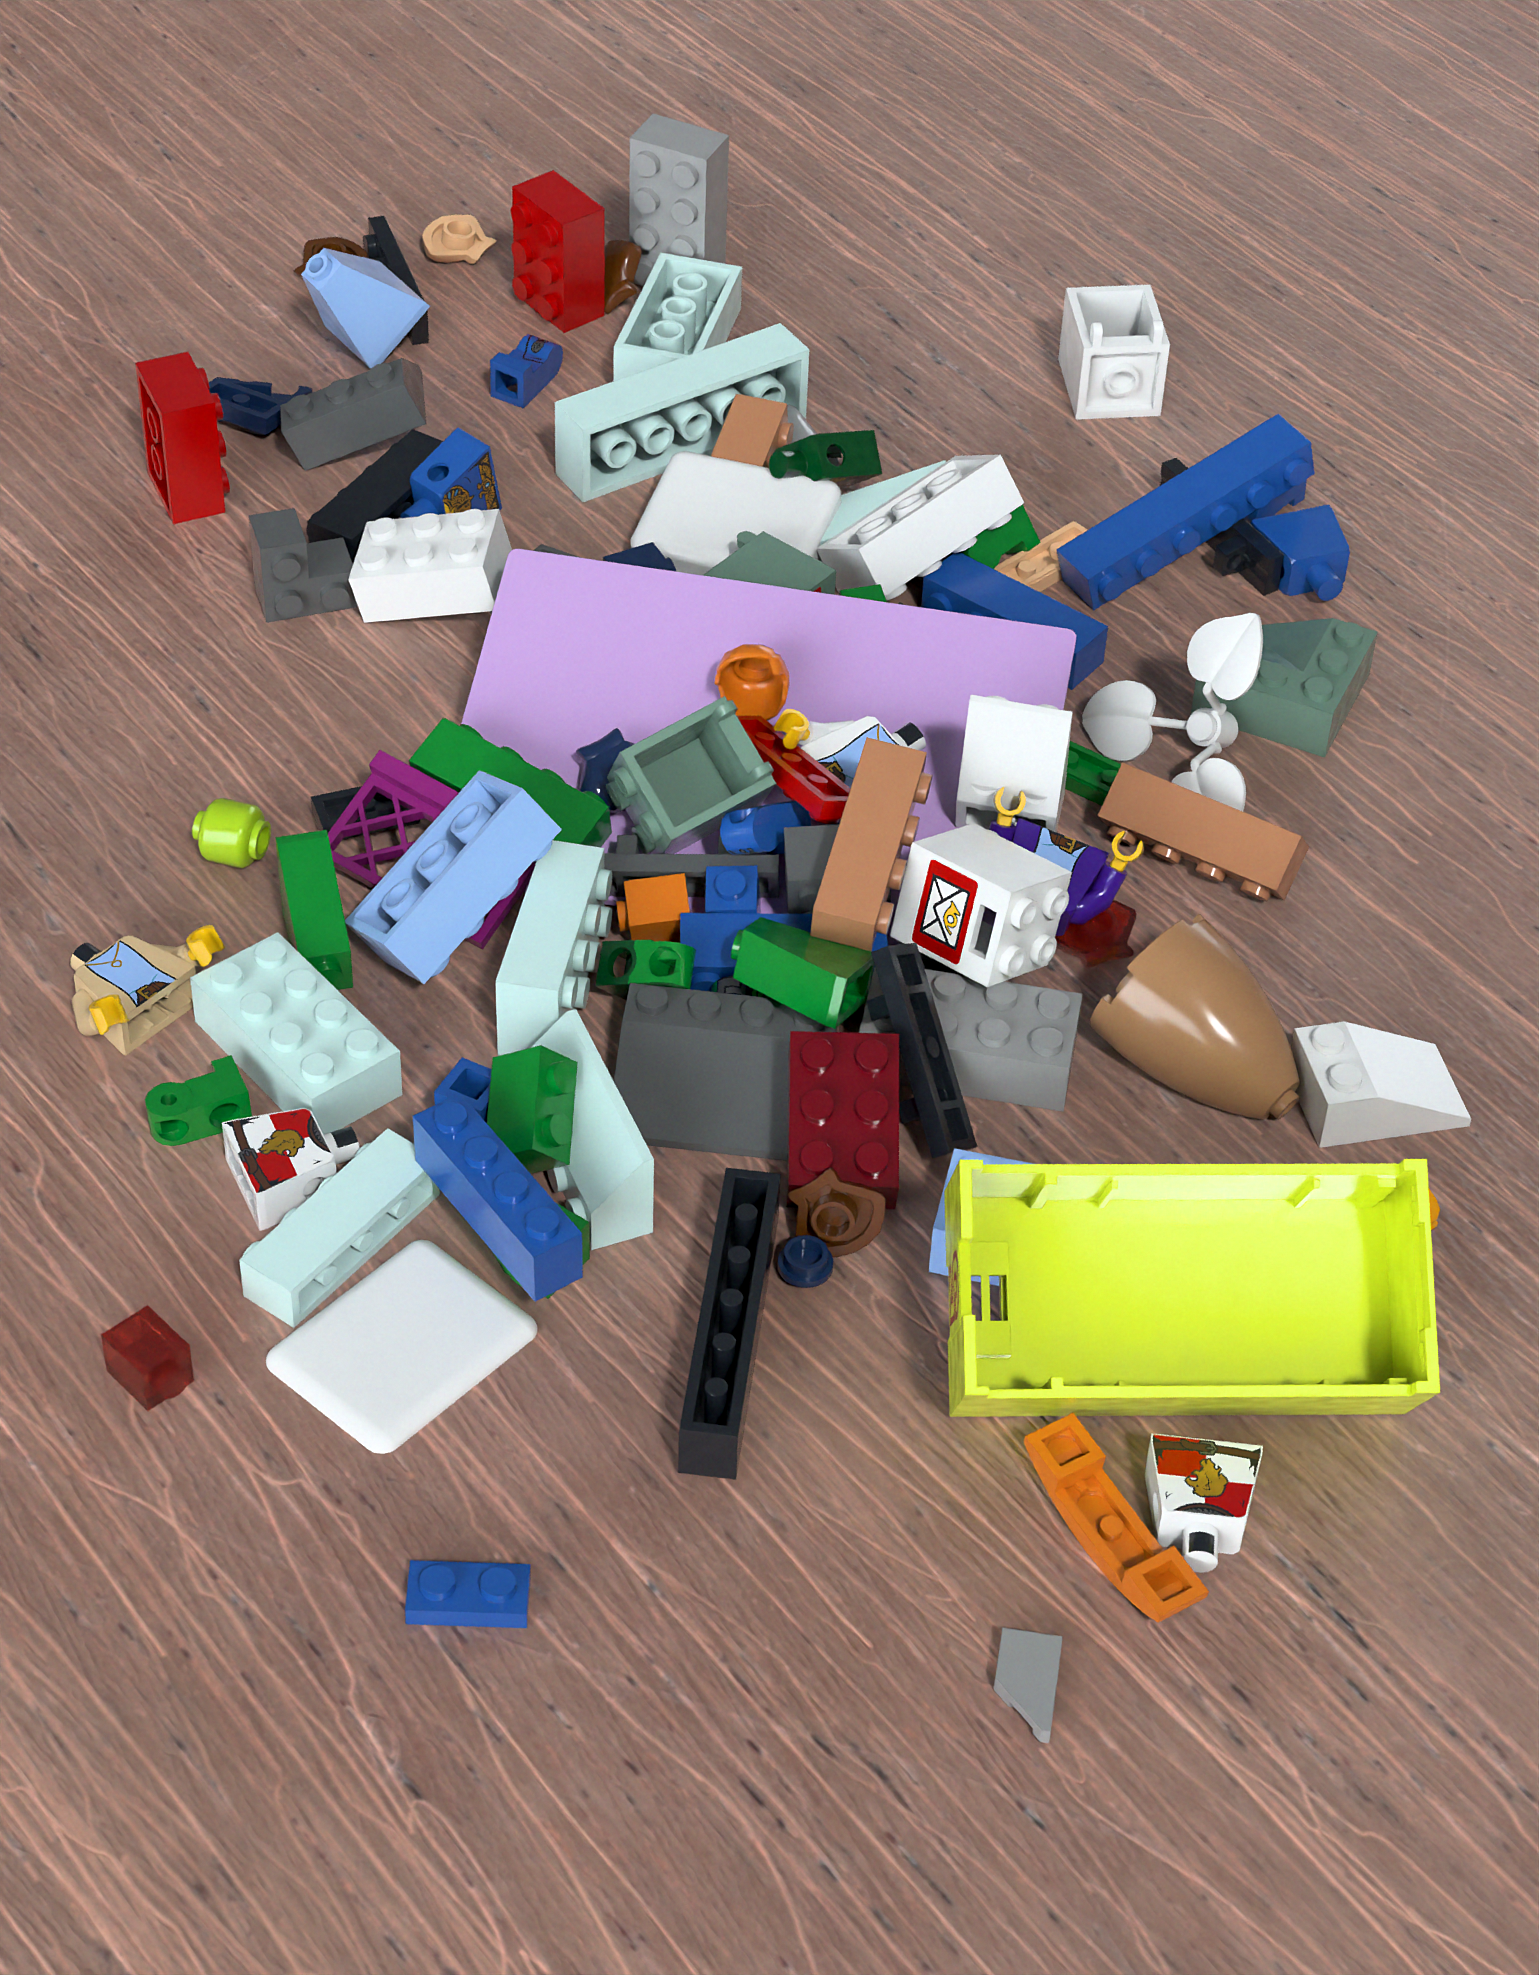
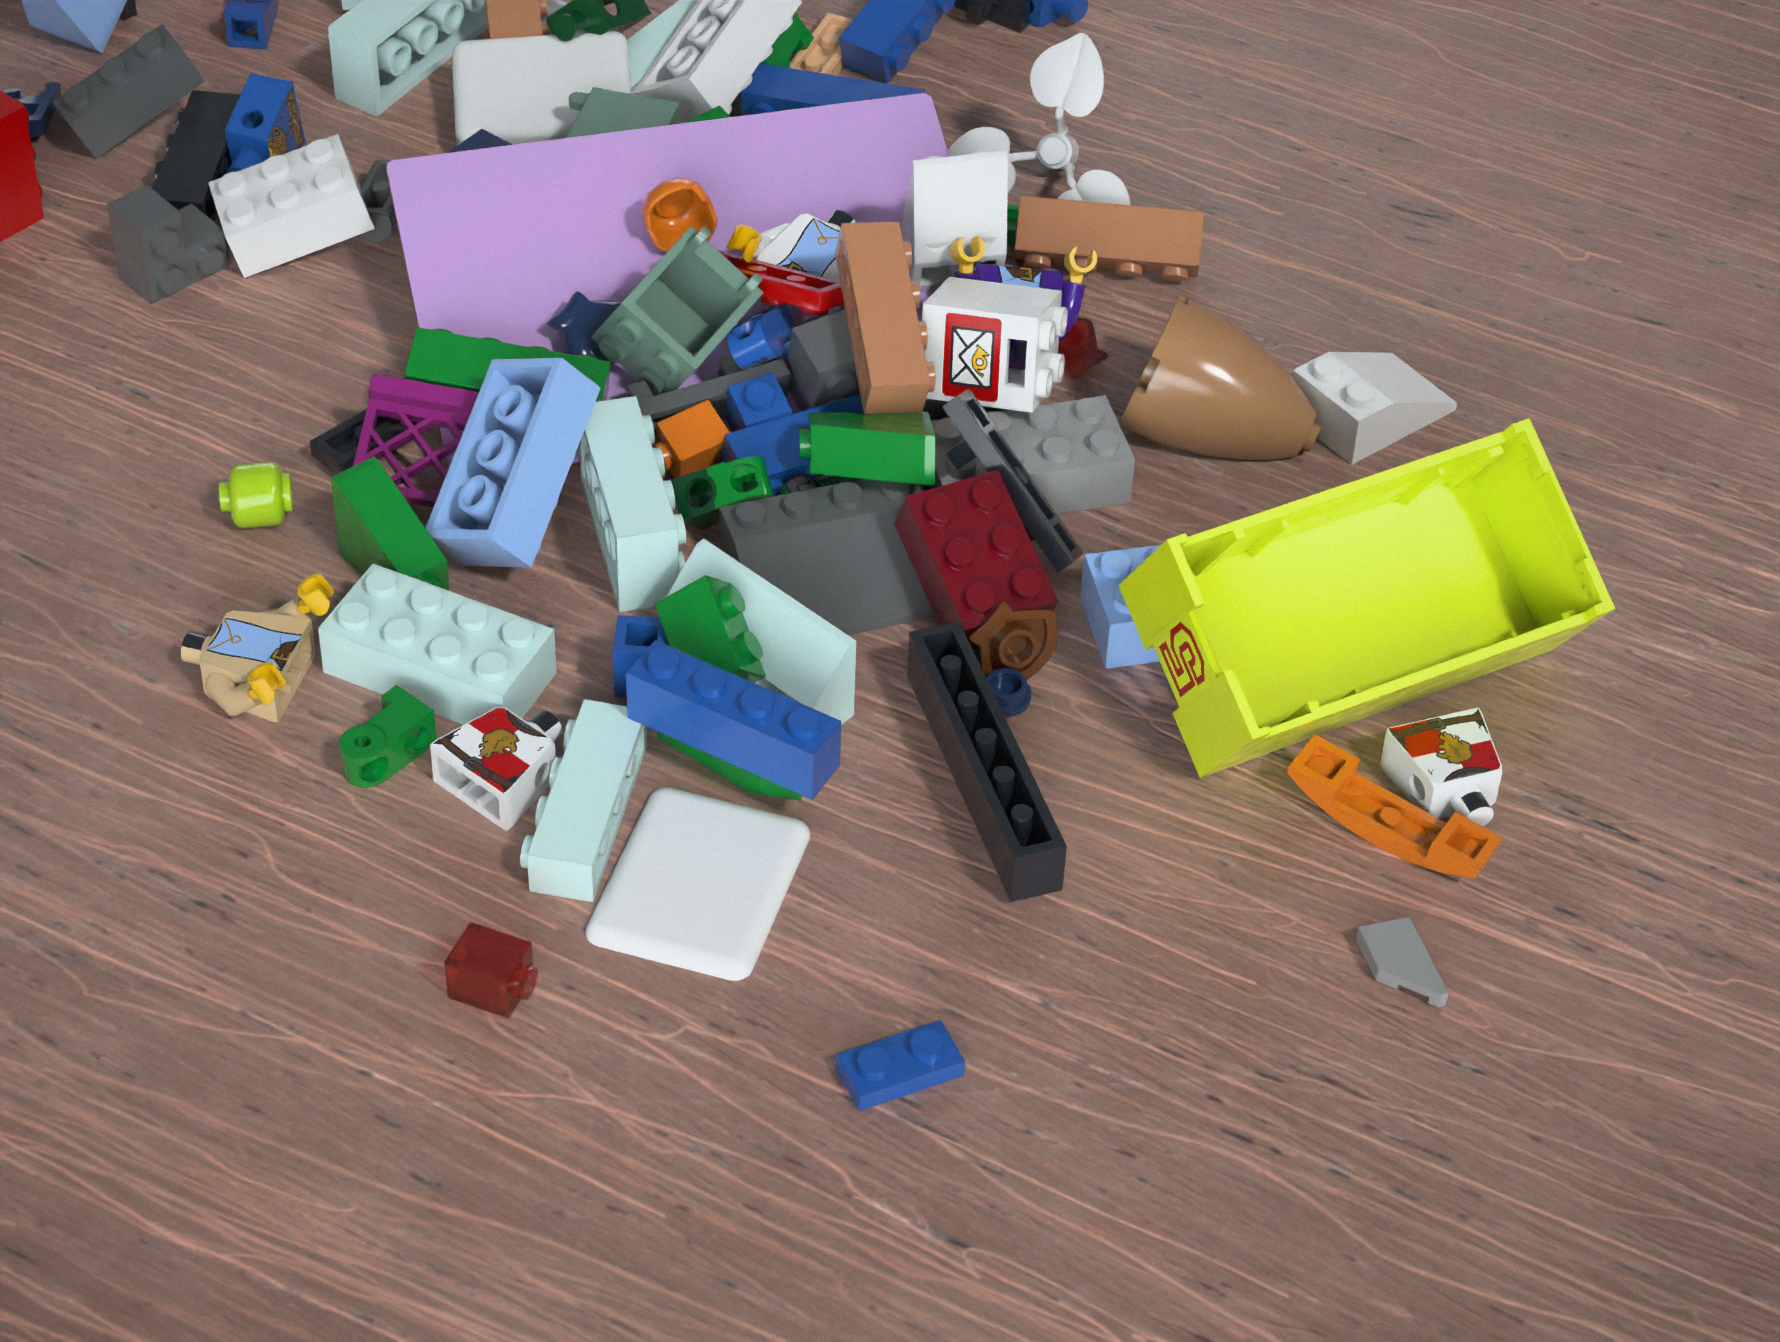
camera: 25 degrees left, 0 degrees up
(1303, 683) = (1129, 102): sand green slope -> none

